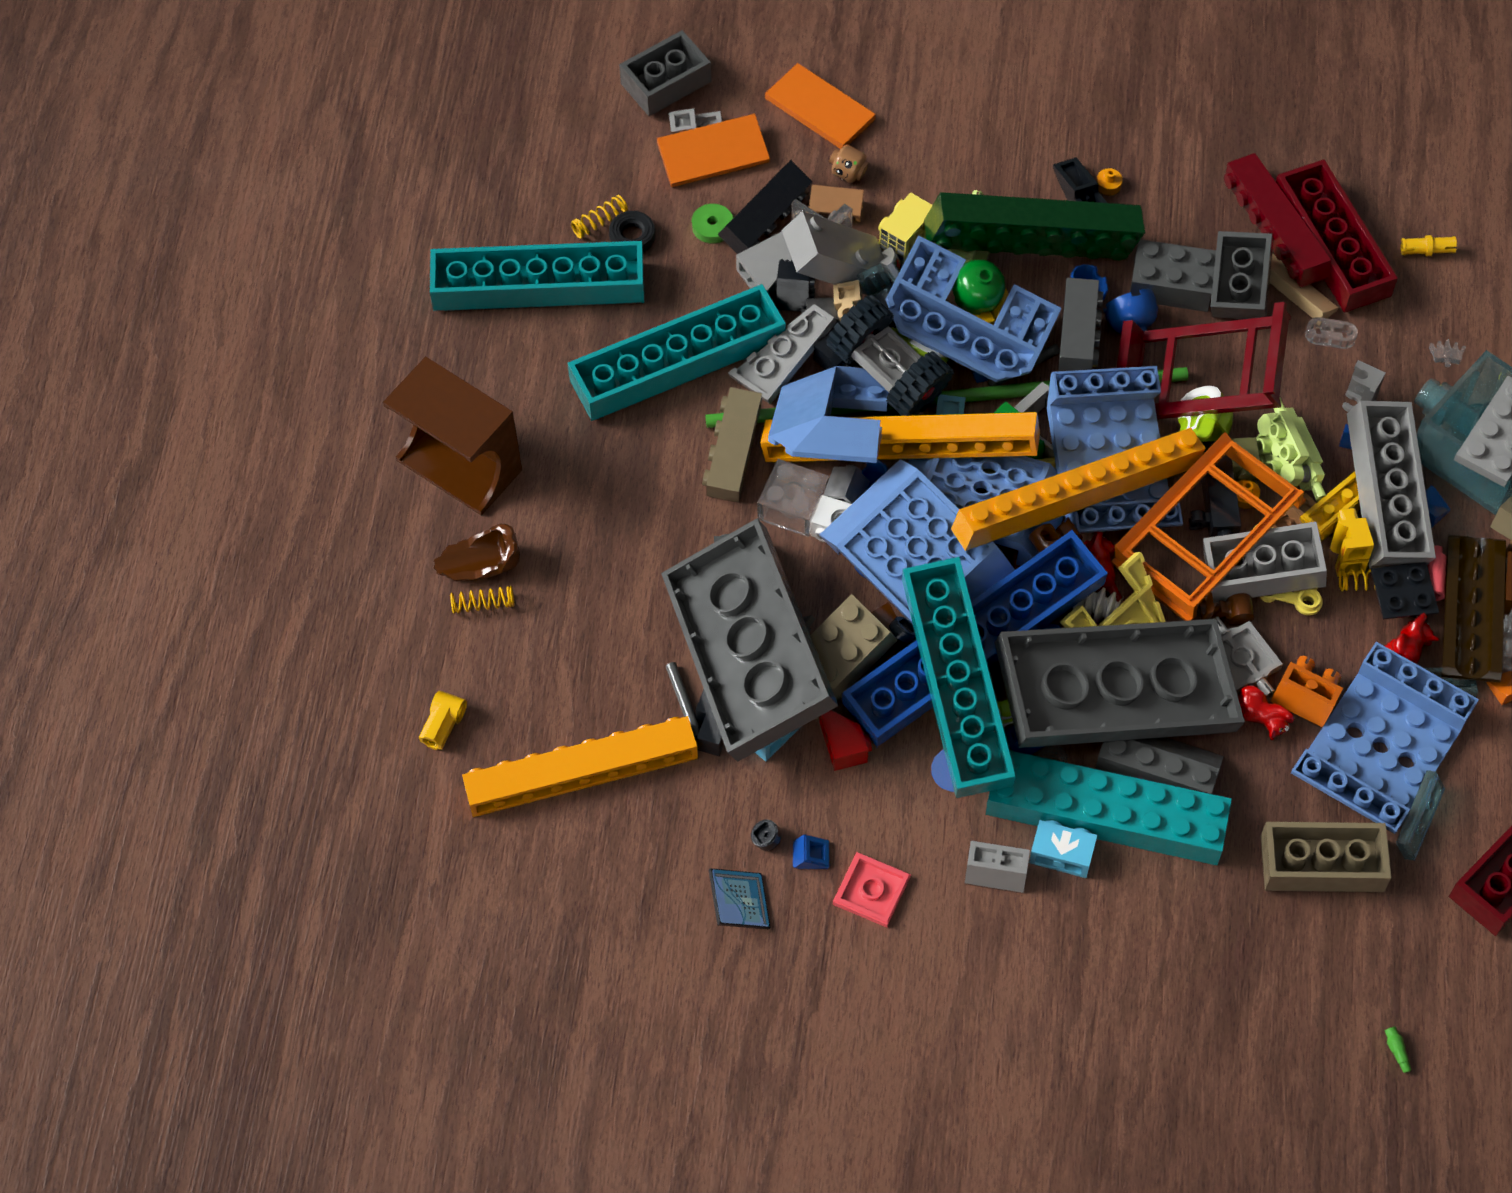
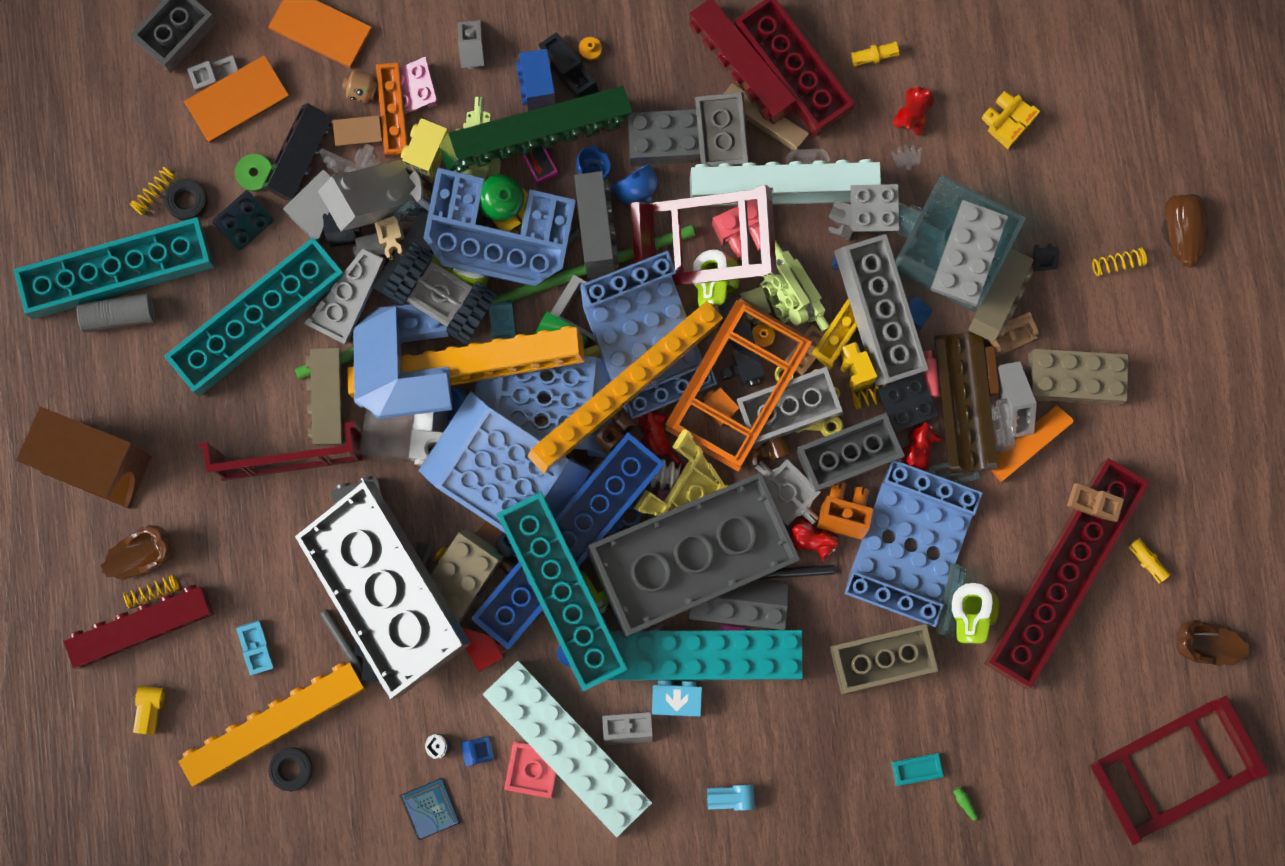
camera: 20 degrees left, 20 degrees up
(457, 632) = (138, 627): none -> dark red brick
(532, 318) = (121, 311): none -> light grey piece
(582, 683) = (255, 647): none -> medium azure slope
(590, 838) = (276, 774): none -> black tyre
(688, 258) = (242, 220): none -> black bracket
(755, 475) = (215, 460): none -> dark red piece
(878, 188) = (391, 108): none -> orange slope
(906, 175) = (417, 86): none -> bright pink hinge
(921, 871) = (567, 748): none -> light aqua brick
(979, 151) = (470, 44): none -> light grey slope
(1027, 271) = (540, 165): none -> slope
(1044, 177) = (536, 74): none -> blue brick
(1115, 973) = (737, 797): none -> medium azure piece
(1176, 563) = (722, 403): none -> orange brick
(1227, 372) = (728, 227): none -> coral brick
(1239, 746) = (801, 571): none -> black bar
(1312, 343) = (790, 183): none -> light aqua piece
(1325, 622) = (849, 452): none -> dark grey slope
(1344, 997) = (917, 769): none -> teal tile
(1402, 375) = (874, 208): none -> light grey hinge
(1448, 825) = (974, 609): none -> piece
(1465, 306) = (914, 111): none -> red animal

